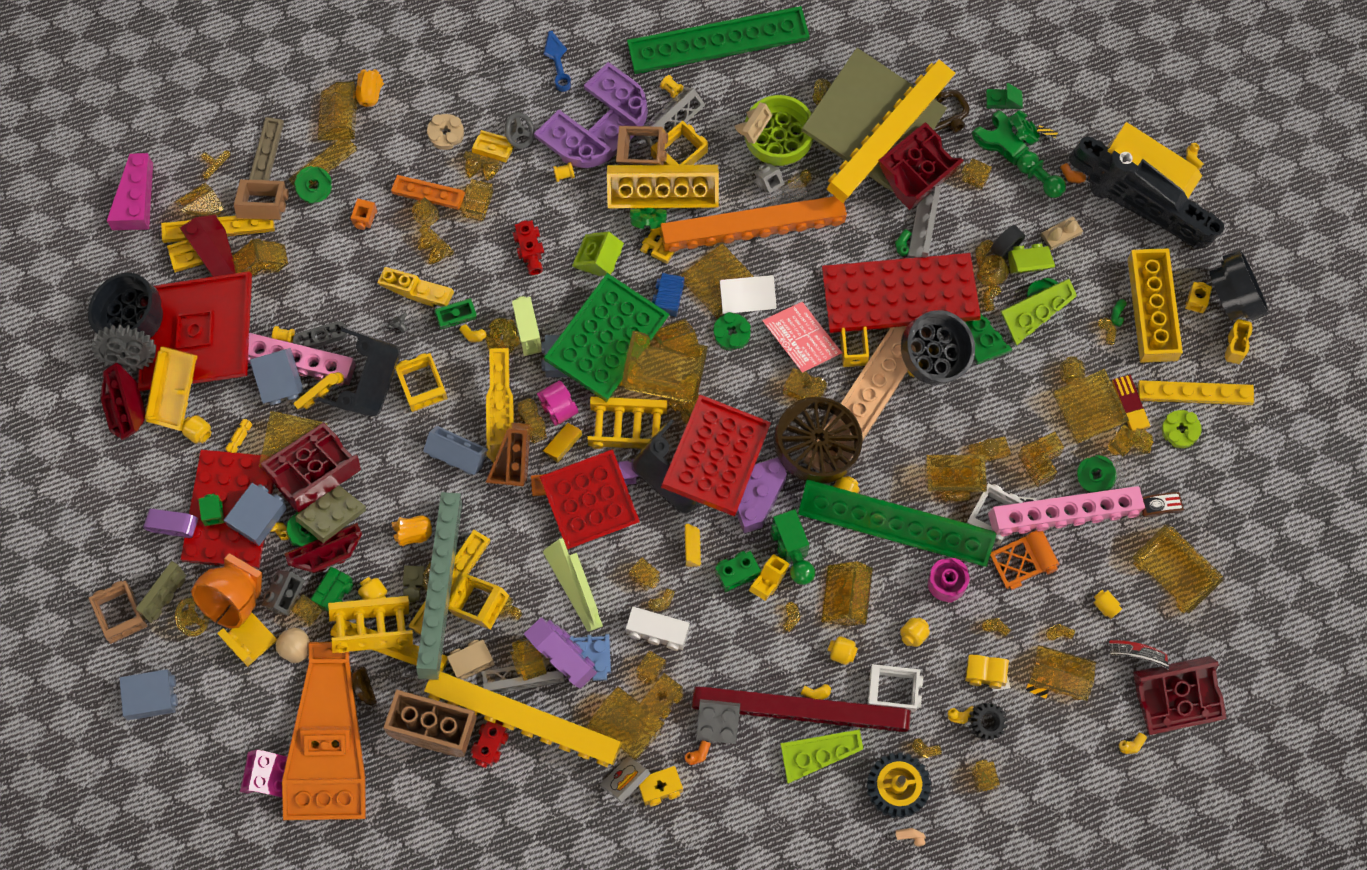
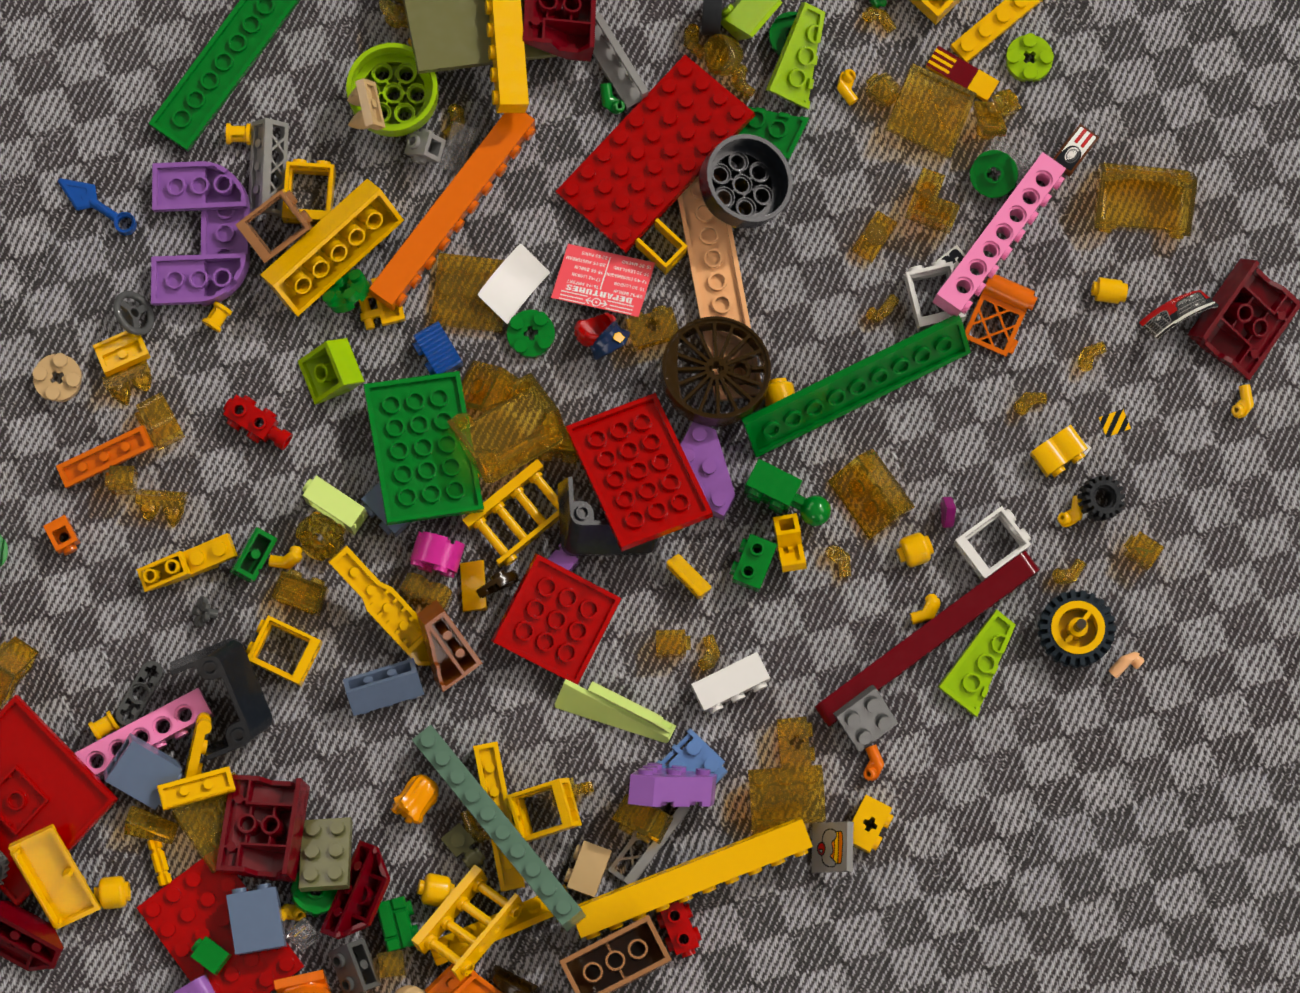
camera: 45 degrees left, 10 degrees up
(251, 410) = (149, 826): none -> clear yellow slope
(274, 548) = (303, 934): none -> clear plate
(295, 410) = (196, 788): none -> yellow tile
(461, 359) = (300, 592): none -> clear yellow brick
(537, 487) = (489, 648): orange tile -> none
(576, 449) = (499, 581): none -> dark brown plate
(650, 668) = (758, 725): clear yellow brick -> none
(771, 363) = (601, 334): none -> piece
(884, 646) = (948, 512): none -> magenta tile
(914, 632) = (963, 473): yellow head -> none
(946, 569) = (960, 387): dark pink brick -> none
(955, 473) = (868, 290): clear yellow slope -> none
(1052, 350) = (845, 86): none -> yellow arm
(1062, 673) = (1126, 392): clear yellow slope -> none

